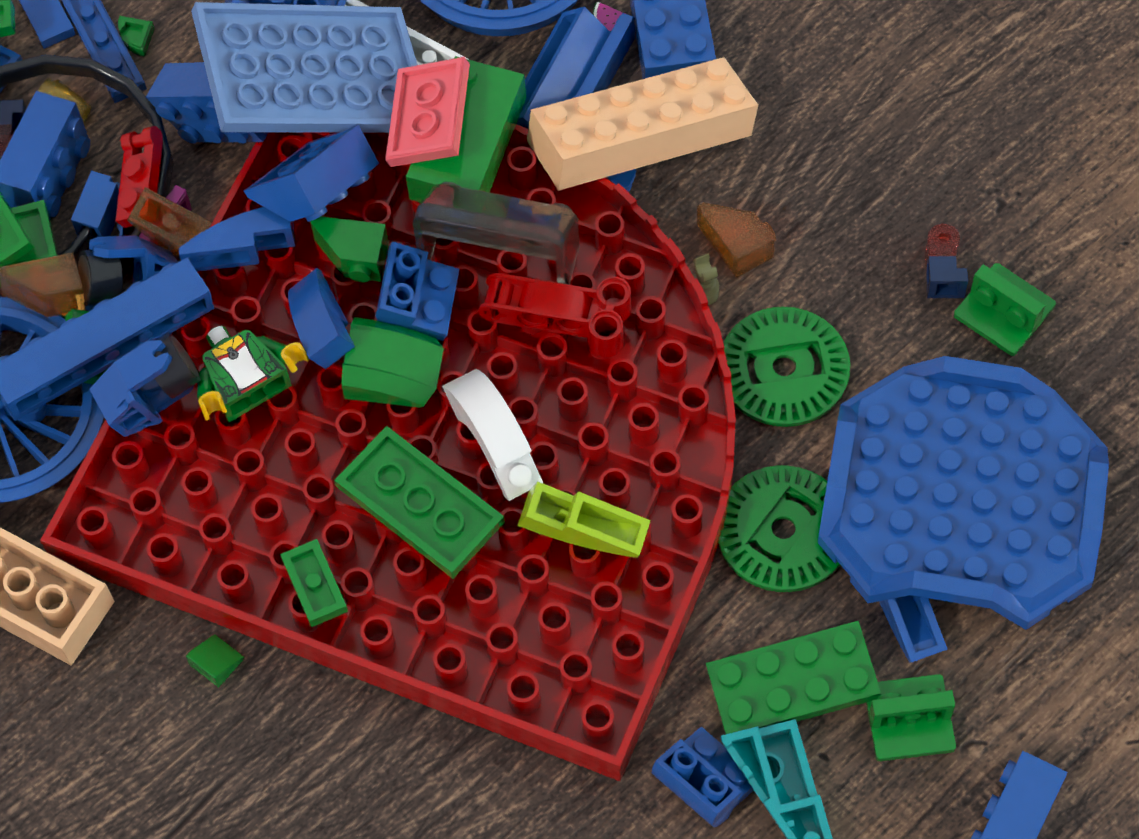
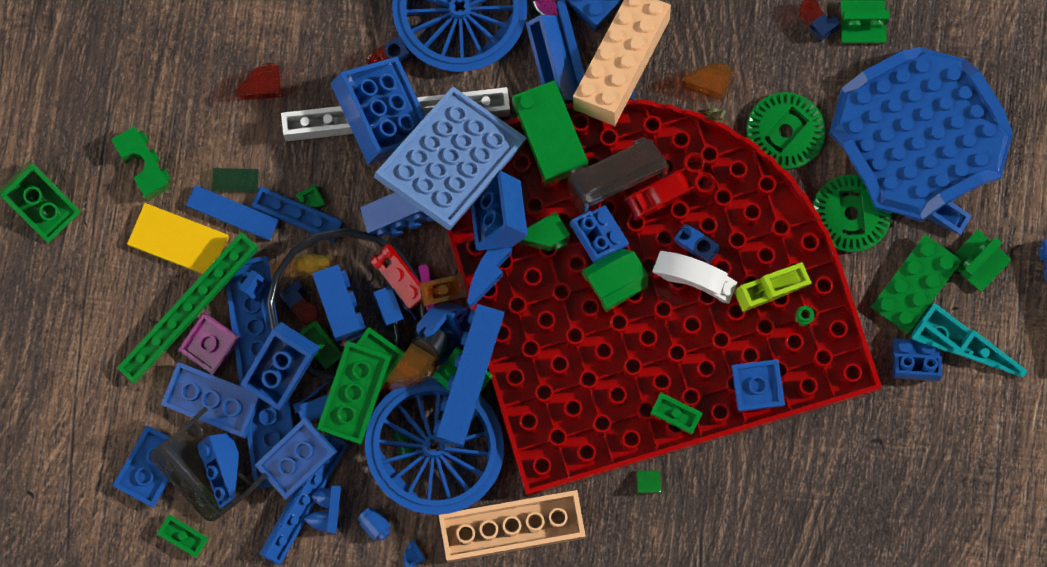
camera: 45 degrees left, 15 degrees up
(144, 384) = (511, 394): blue piece -> none
(244, 371) = (551, 338): torso -> none
(319, 320) = (565, 284): blue slope -> none
(419, 501) = (689, 336): green plate -> none
(427, 112) = (528, 137): coral tile -> none
(451, 630) = (758, 385): none -> blue plate
(532, 400) = (697, 244): none -> leg
(590, 585) = (804, 310): none -> green pin

